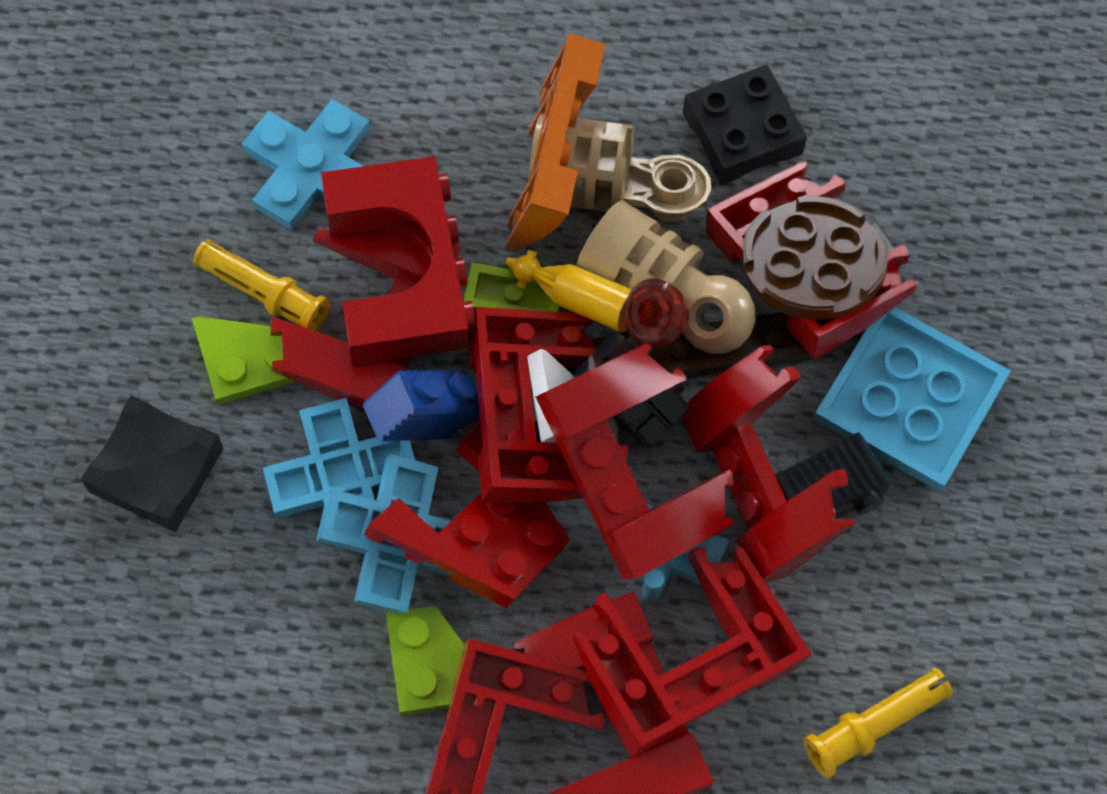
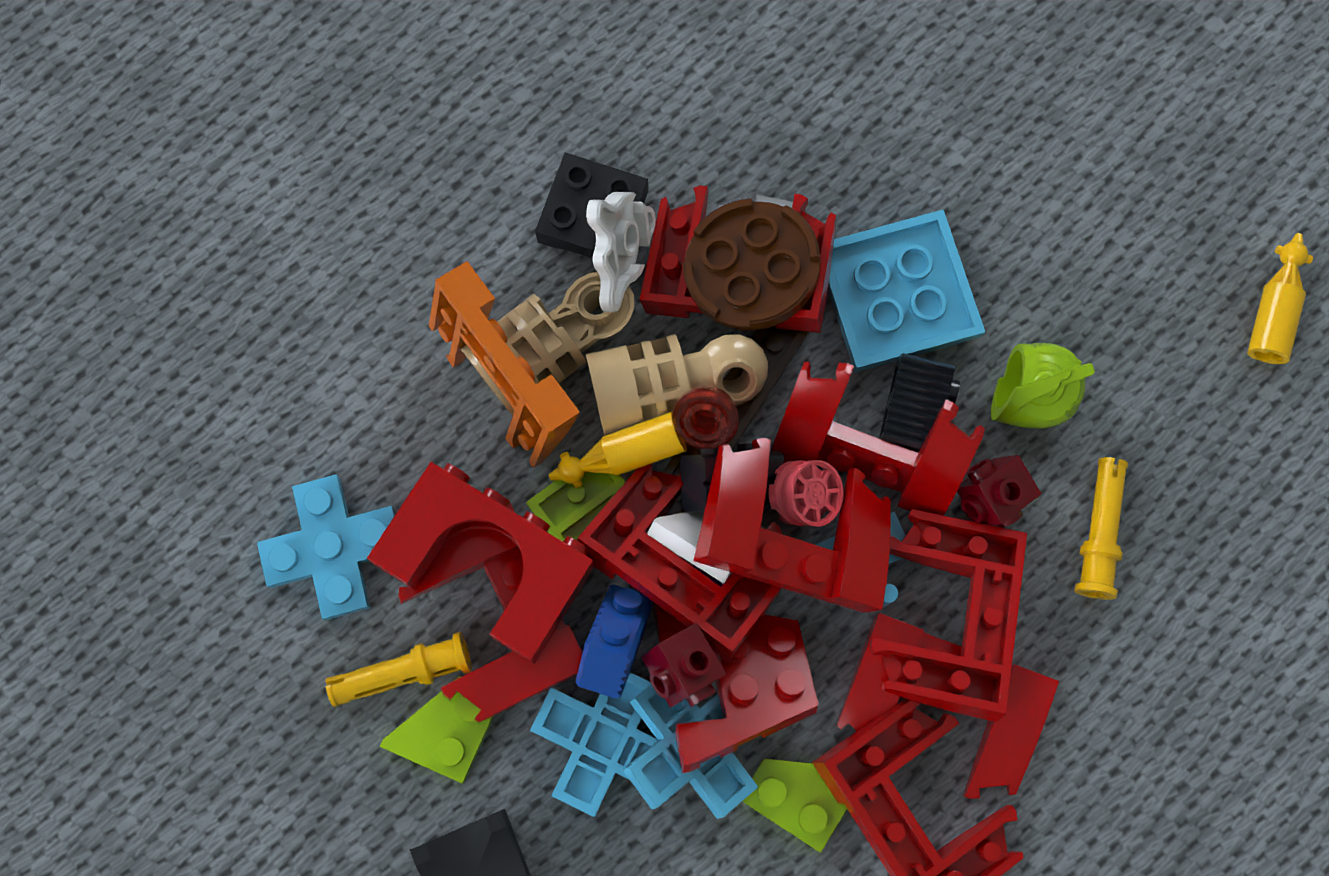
camera: 45 degrees left, 10 degrees up
(447, 464) = (684, 667): none -> dark red brick
(674, 450) = (806, 492): none -> coral wheel
(732, 148) = (619, 232): none -> white tile
(822, 601) = (997, 491): none -> dark red brick
(943, 566) = (1039, 386): none -> lime helmet

